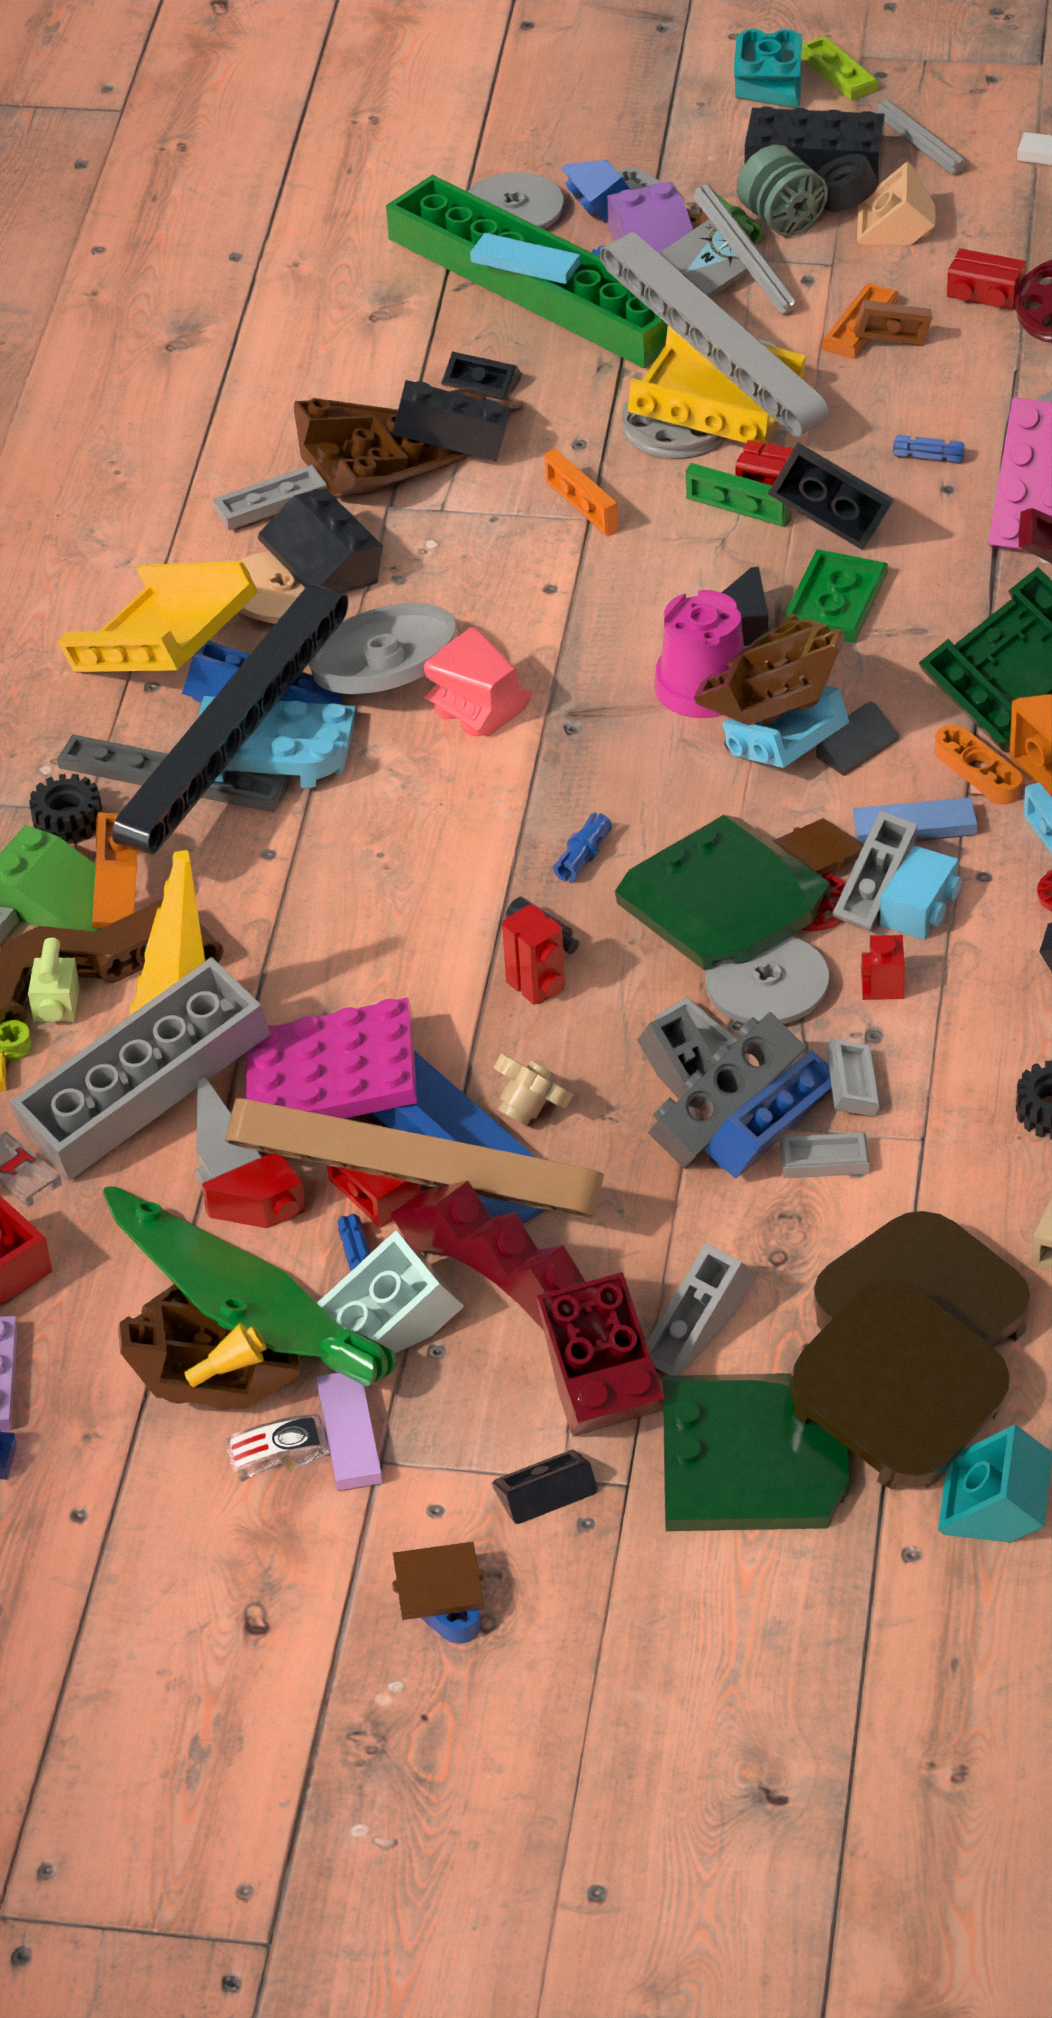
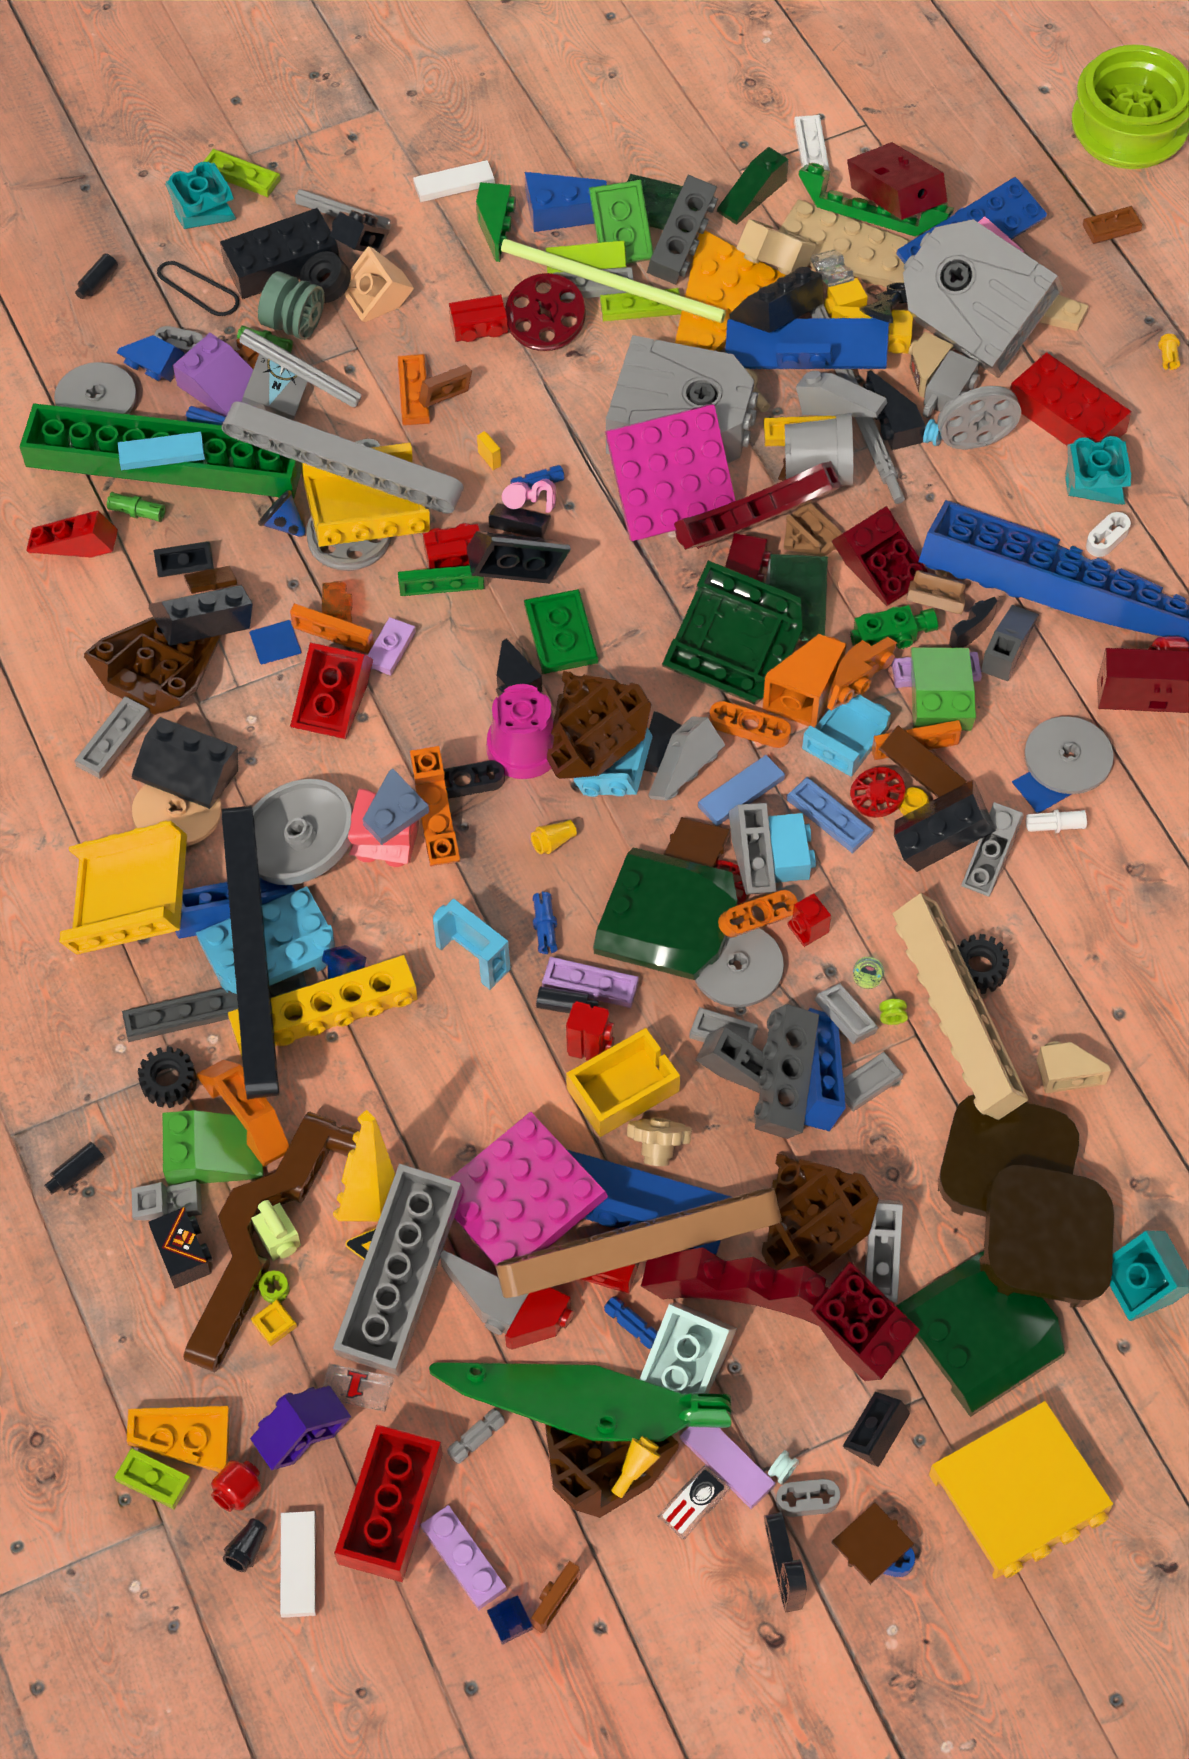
camera: 35 degrees left, 15 degrees up
(50, 1453) = (554, 1596): none -> dark orange plate
(100, 1271) = (476, 1436): none -> light grey axle
(295, 818) = (334, 993): none -> yellow brick
(313, 1548) = (789, 1573): none -> black beam
(332, 780) = (342, 960): none -> clear blue tile
(387, 313) = (76, 536): none -> red slope
(402, 1462) = (783, 1467): none -> light aqua bush
(406, 1510) = (809, 1505): none -> light grey beam
(470, 312) = (135, 507): none -> bright green pin
(476, 805) = (459, 924): none -> medium azure panel
(490, 655) = (393, 808): none -> sand blue wing
(515, 486) = (275, 642): none -> blue sticker
(533, 542) = (330, 690): none -> red slope
(534, 1018) = (623, 1082): none -> yellow piece
(553, 684) = (436, 824): none -> orange slope
(590, 924) = (597, 982): none -> lavender tile
(603, 102) = (96, 276): none -> black cylinder
(607, 467) = (337, 601): none -> clear orange brick
(613, 370) = (284, 516): none -> hat
(633, 535) = (391, 645): none -> lavender plate
(639, 690) = (484, 784): none -> black beam
(645, 1237) = (820, 1214): none -> reddish brown wedge
(655, 1620) = (1022, 1490): none -> yellow panel
(659, 771) = (550, 837): none -> yellow cone
(715, 142) = (203, 278): none -> black piece
(842, 925) = (750, 922): none -> orange beam
(876, 475) = (518, 521): none -> black slope
(881, 750) = (686, 753): none -> light grey slope
(894, 400) = (489, 450): none -> yellow tile
(894, 451) = (519, 493): none -> bright pink leg
(906, 143) = (359, 231): none -> black brick
(908, 1098) = (893, 1011): none -> lime bush
(914, 1053) = (868, 972): none -> clear light blue tile
(981, 1116) = (959, 1007): none -> tan brick
(1000, 887) = (829, 815): none -> medium blue tile

